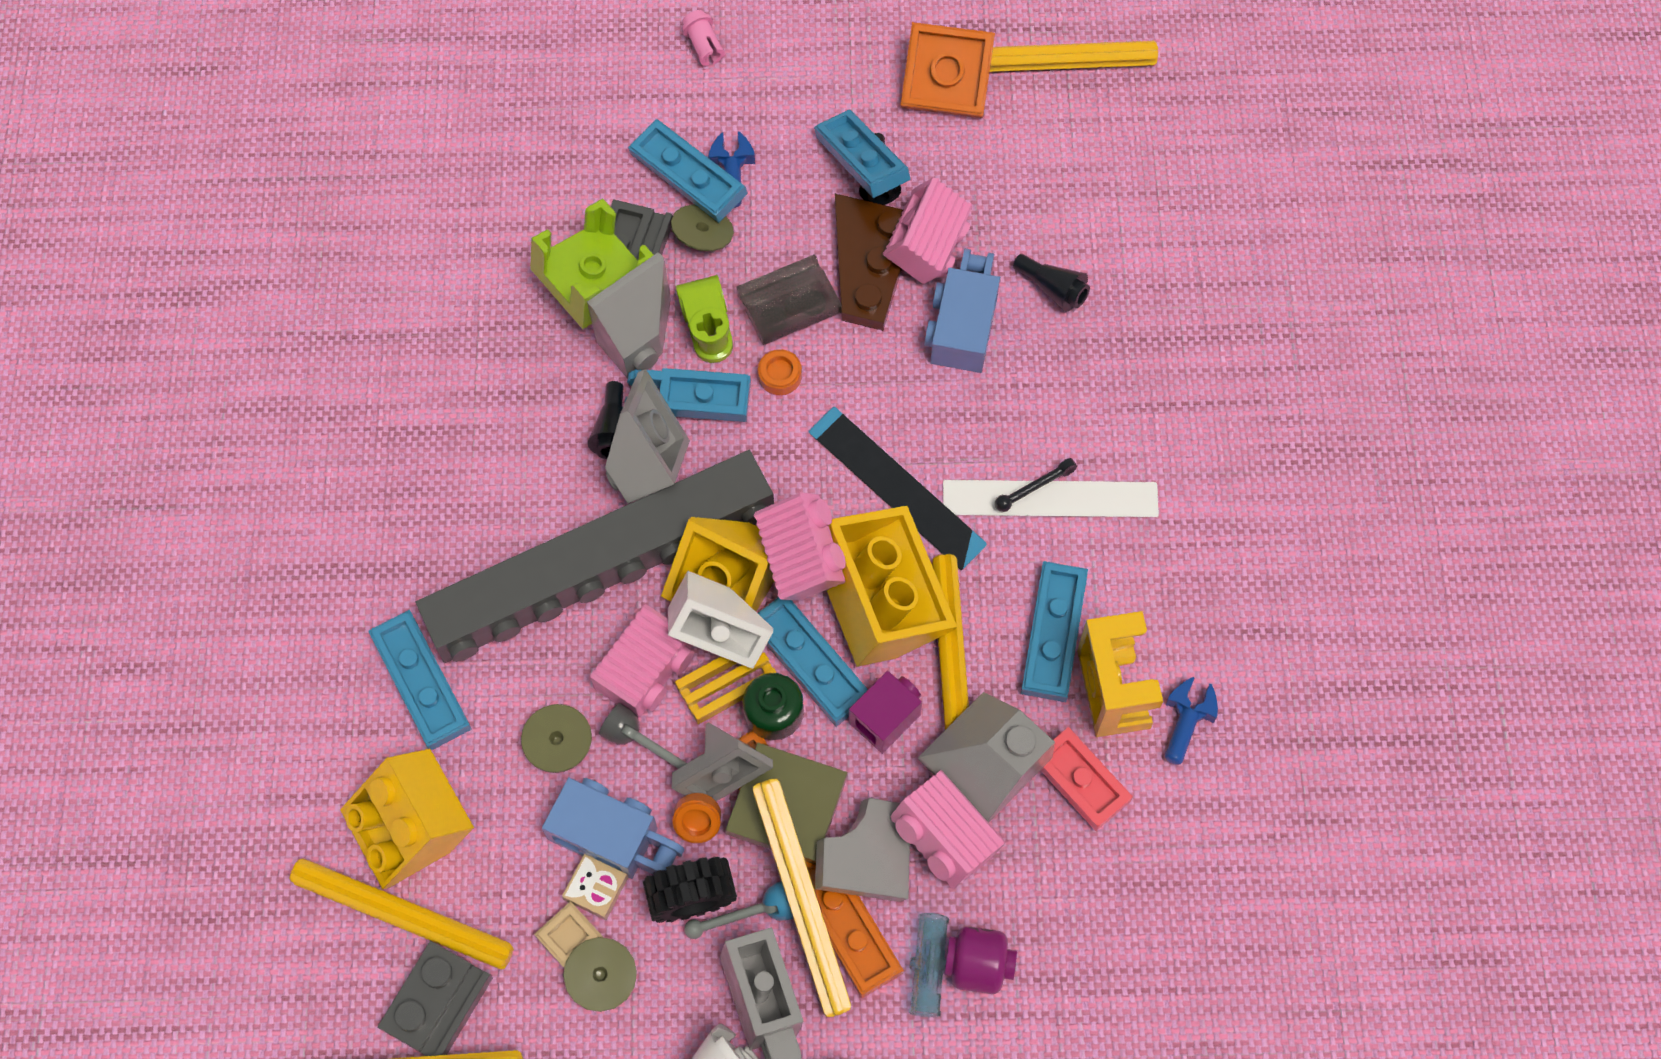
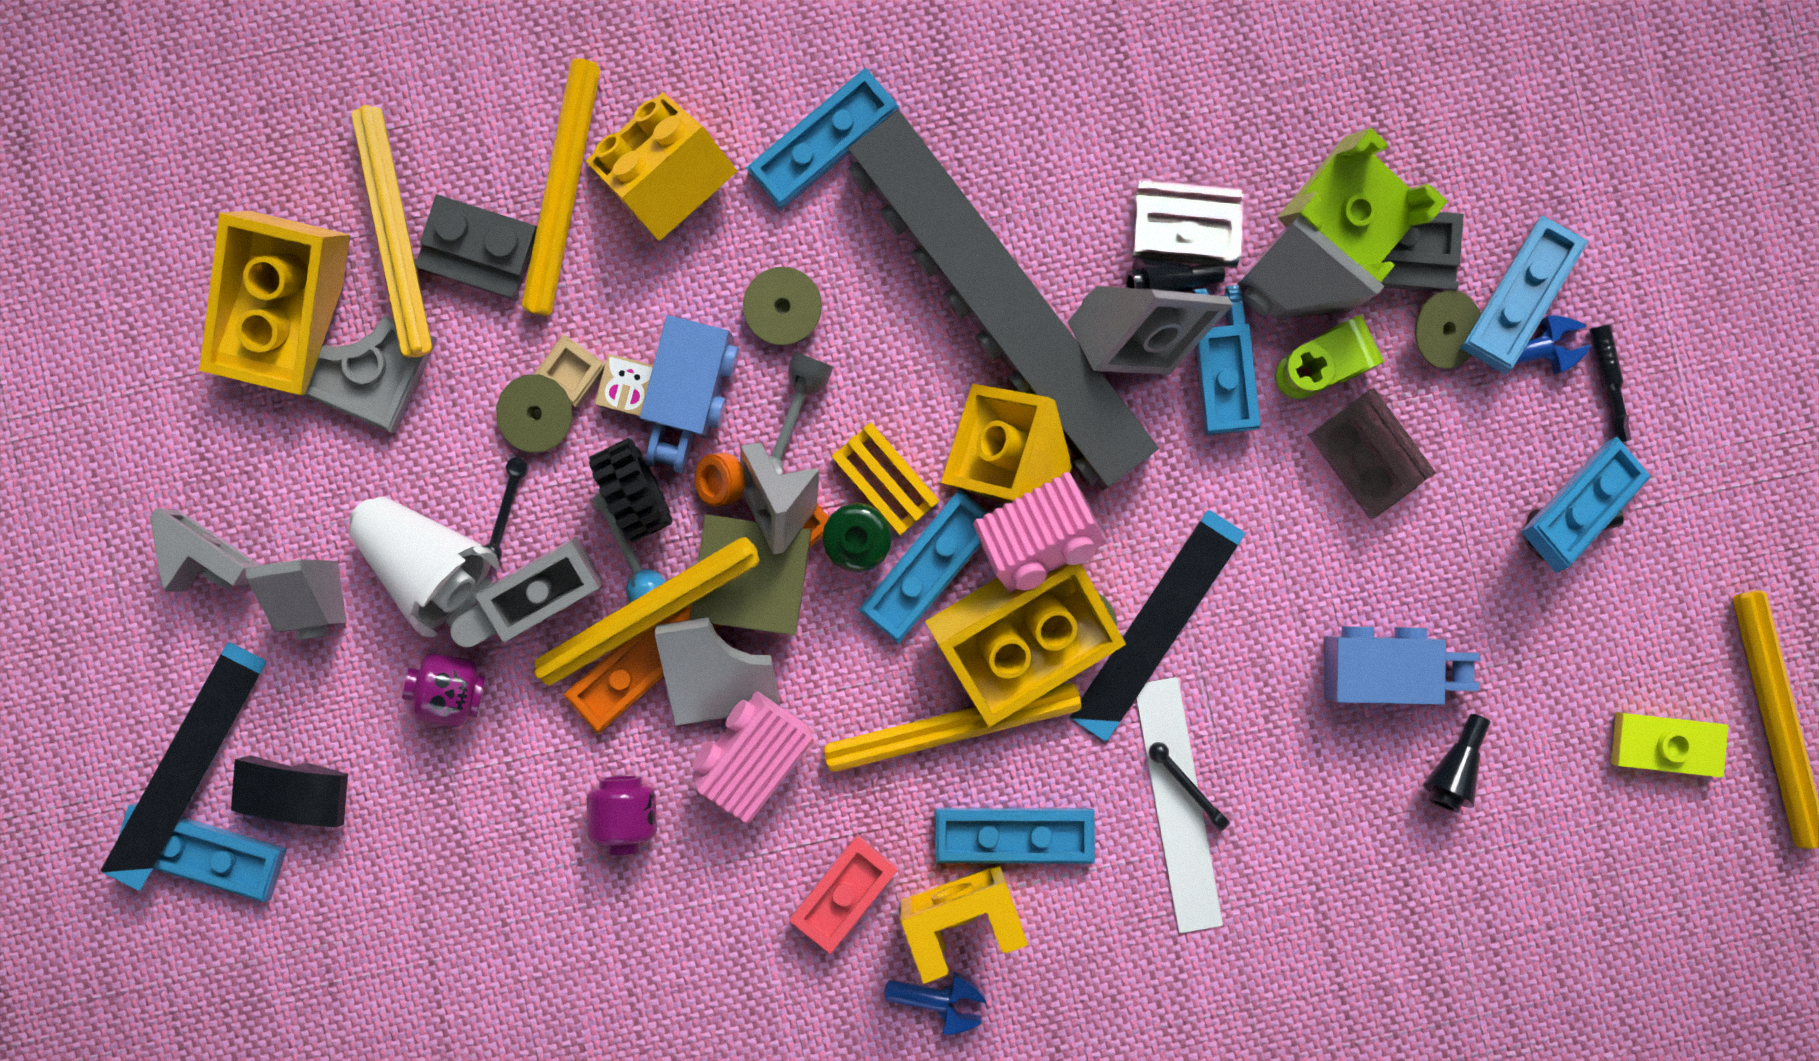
camera: 75 degrees right, 20 degrees up
(569, 402) = (1187, 224): none -> clear smoke plate
(641, 663) = (884, 381): bright pink brick -> none
(646, 1004) = (517, 469): none -> black hinge
(699, 29) = (1730, 264): bright pink pin -> none
(717, 621) = (940, 453): white slope -> none
(765, 123) = (1611, 377): none -> black piece
(779, 372) = (1276, 461): orange tile -> none
(865, 274) = (1452, 539): reddish brown wing -> none
(886, 710) = (880, 665): magenta brick -> none
(929, 231) = (1494, 606): bright pink brick -> none
(929, 965) = (606, 760): clear light blue pin -> none
(947, 70) = (1731, 588): orange tile -> none
(990, 753) = (843, 788): light grey slope -> none
(1061, 134) = (1669, 744): none -> neon yellow plate

